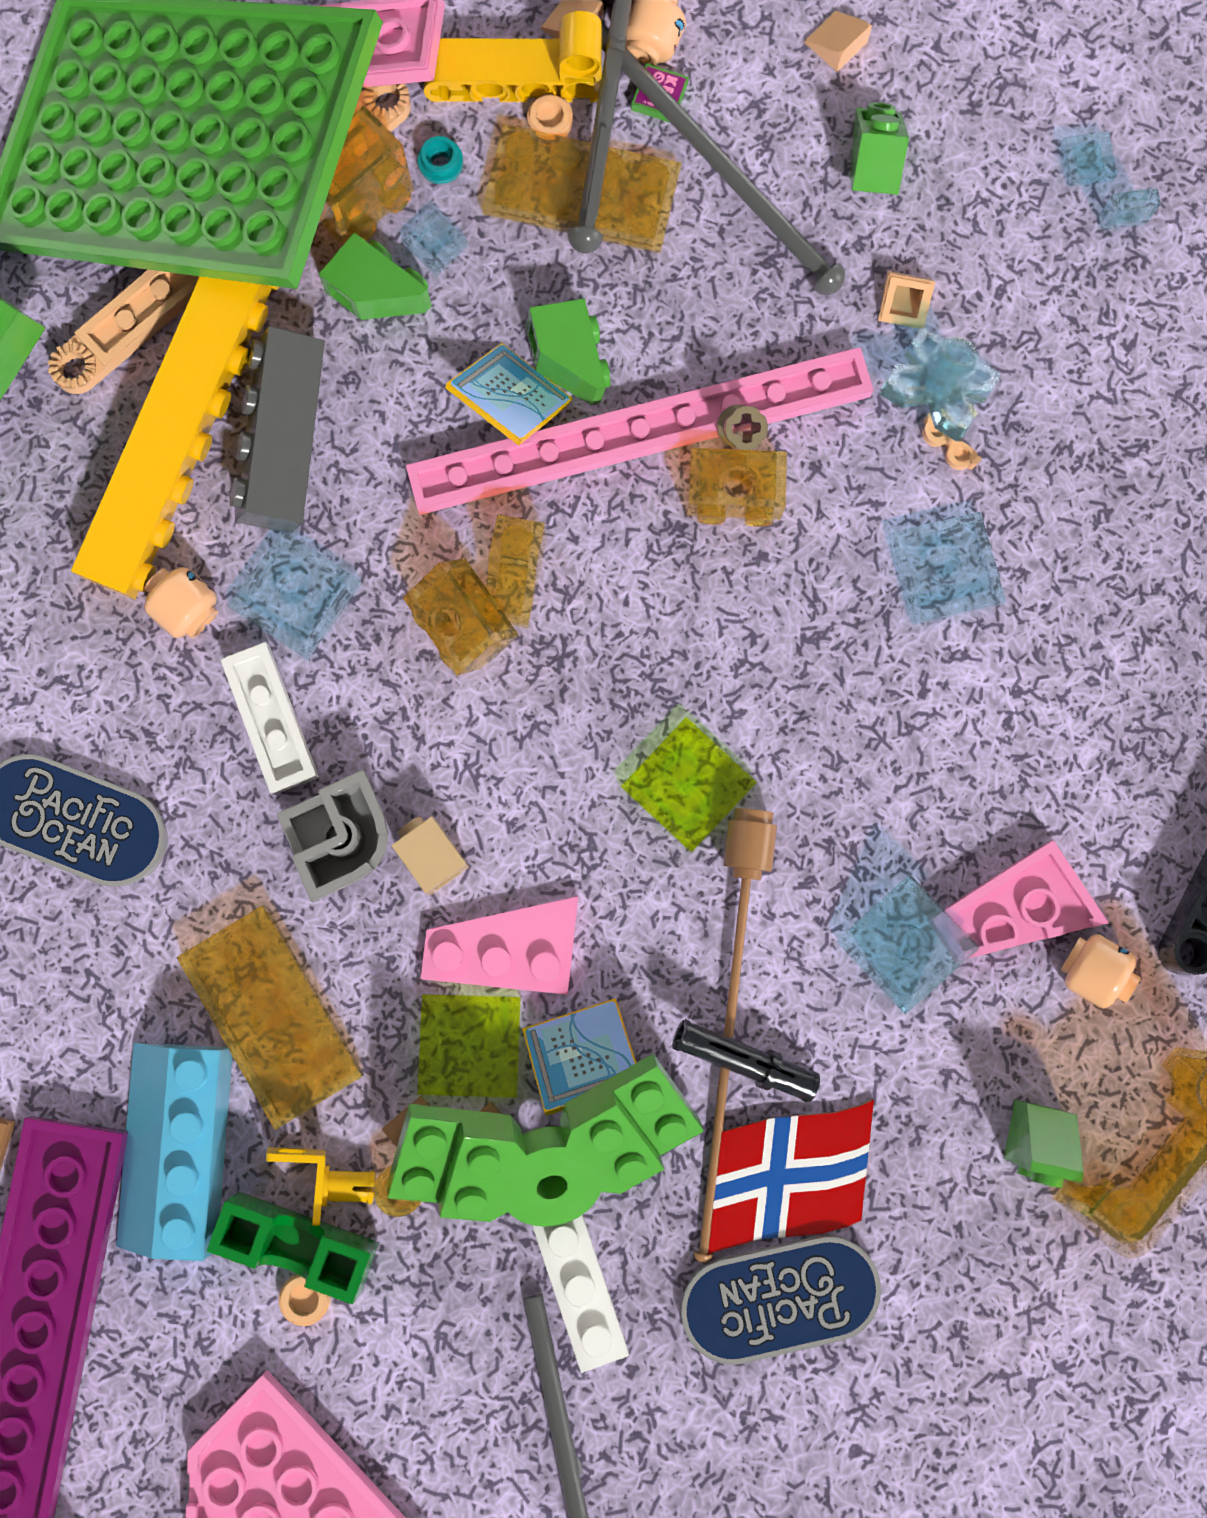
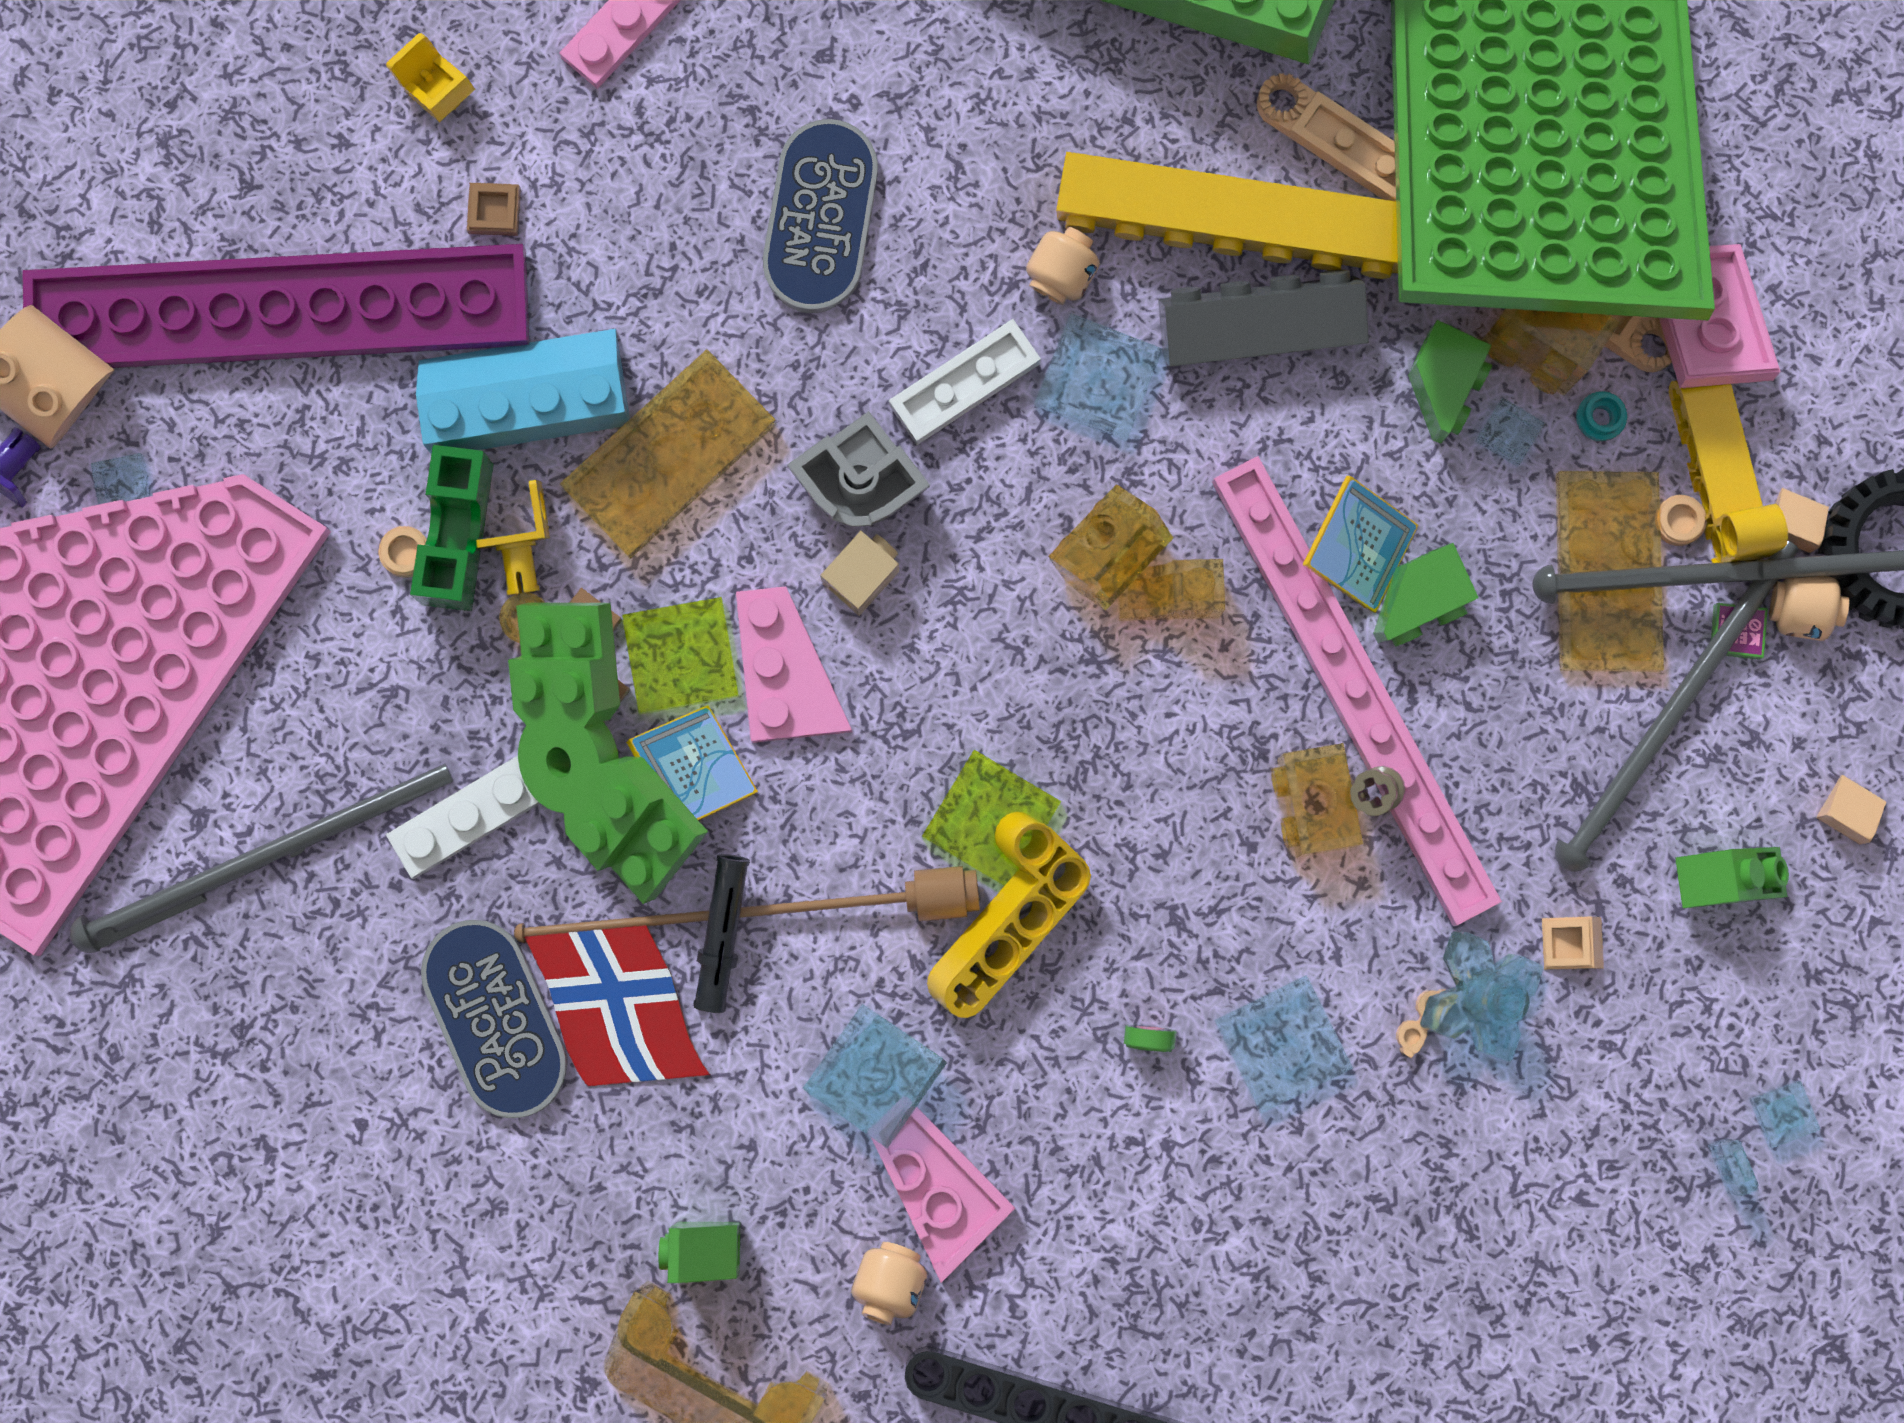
camera: 75 degrees right, 0 degrees up
(790, 783) = (1001, 916): none -> yellow beam
(920, 684) = (1150, 1038): none -> bright green tile

